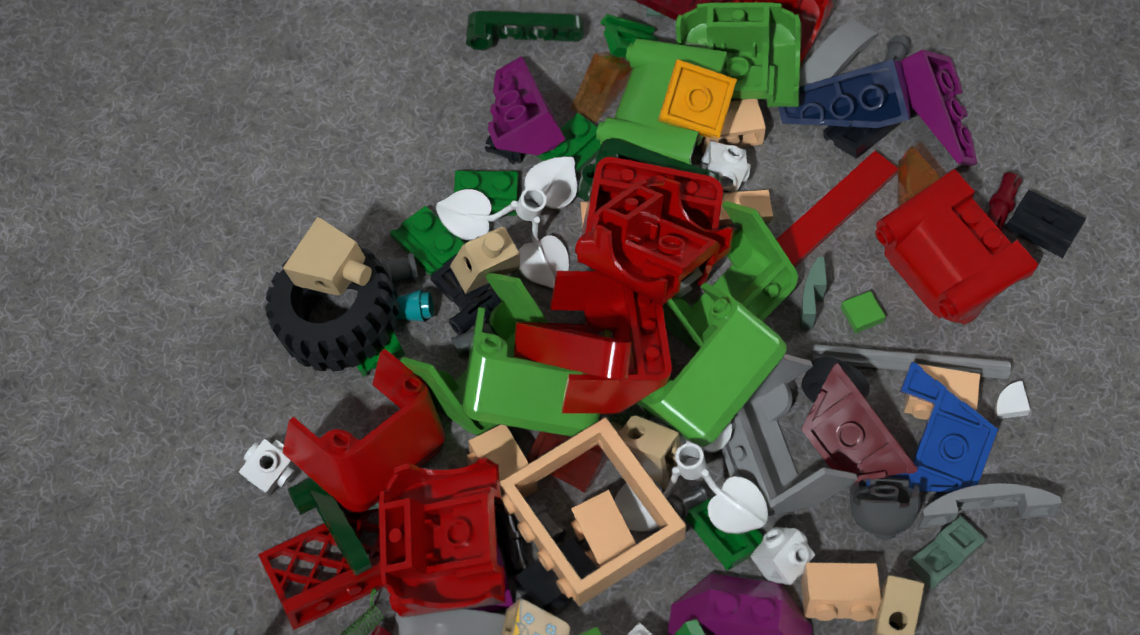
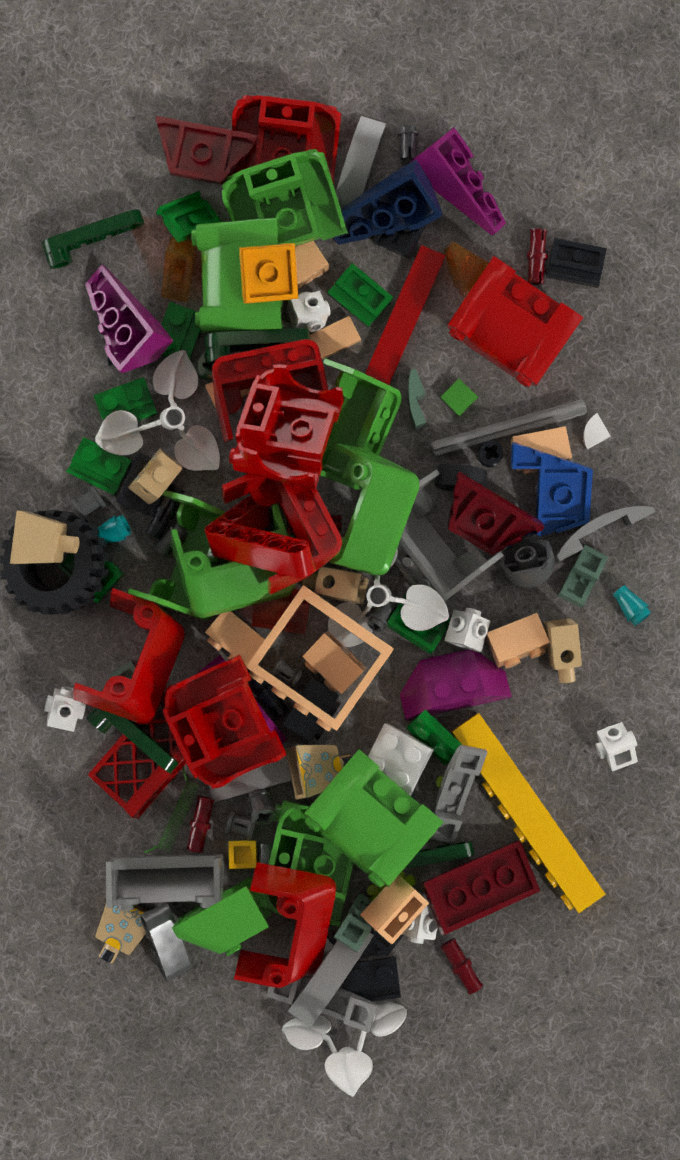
camera: 25 degrees left, 25 degrees up
(788, 175) = (360, 295): none -> green plate
(879, 378) = (493, 461): none -> black bush
(998, 607) = (631, 605): none -> teal cone

